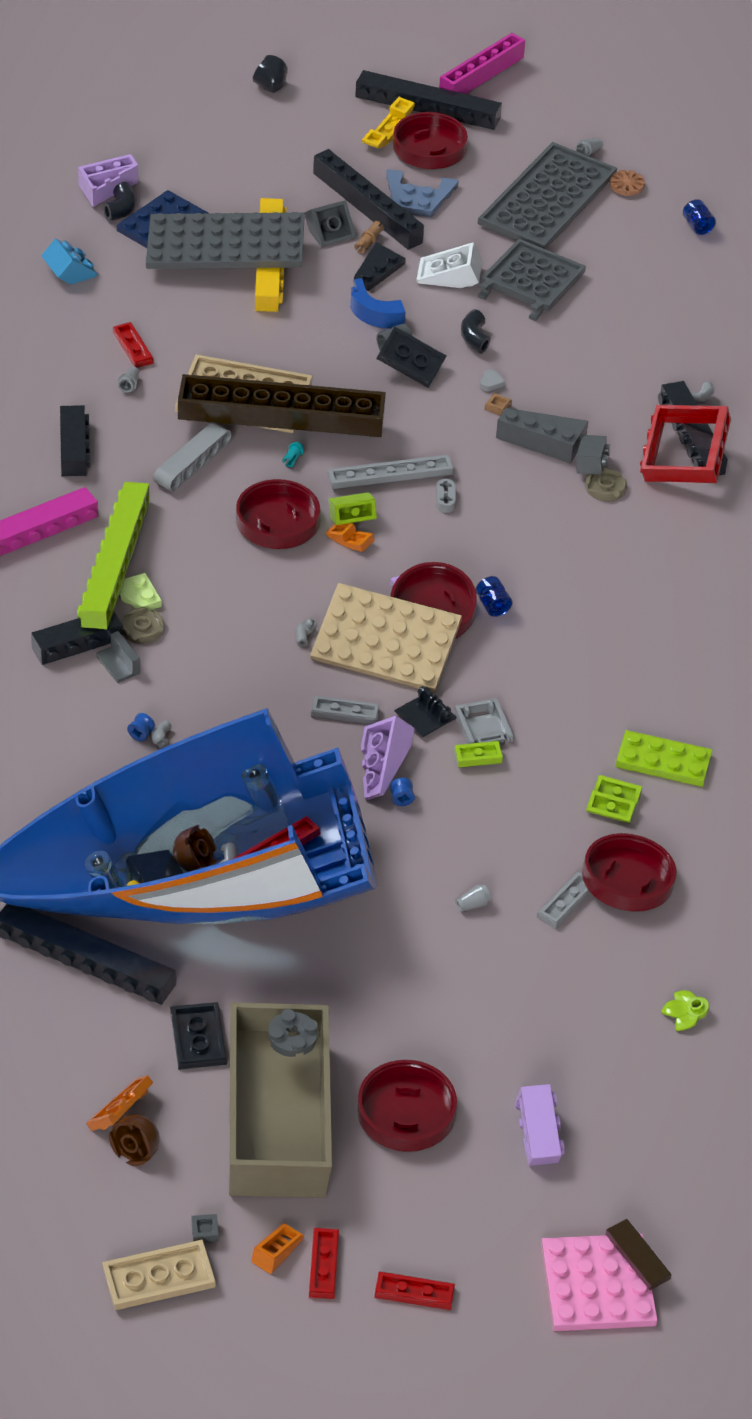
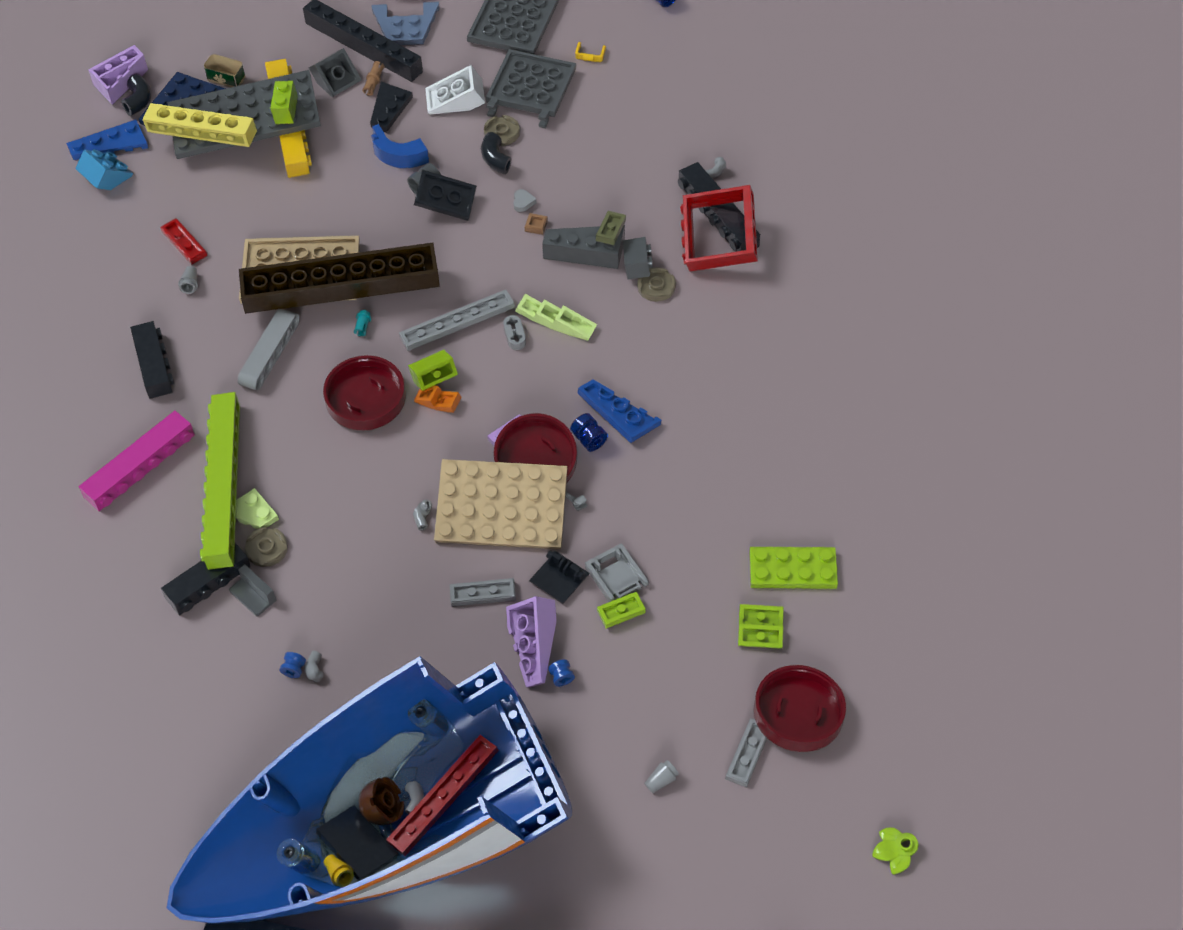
camera: 10 degrees left, 10 degrees up
(87, 238) = (113, 139): none -> blue wing
(178, 239) = (199, 125): none -> light yellow brick
(216, 197) = (219, 70): none -> tan piece
(270, 235) = (284, 102): none -> lime brick
(464, 655) = (579, 502): none -> light grey hand
(490, 491) = (560, 320): none -> yellowish green slope
(494, 311) = (505, 127): none -> dark tan tile
(530, 587) = (623, 416): none -> blue wing
(572, 418) = (610, 227): none -> olive plate
(602, 264) = (589, 57): none -> yellow piece

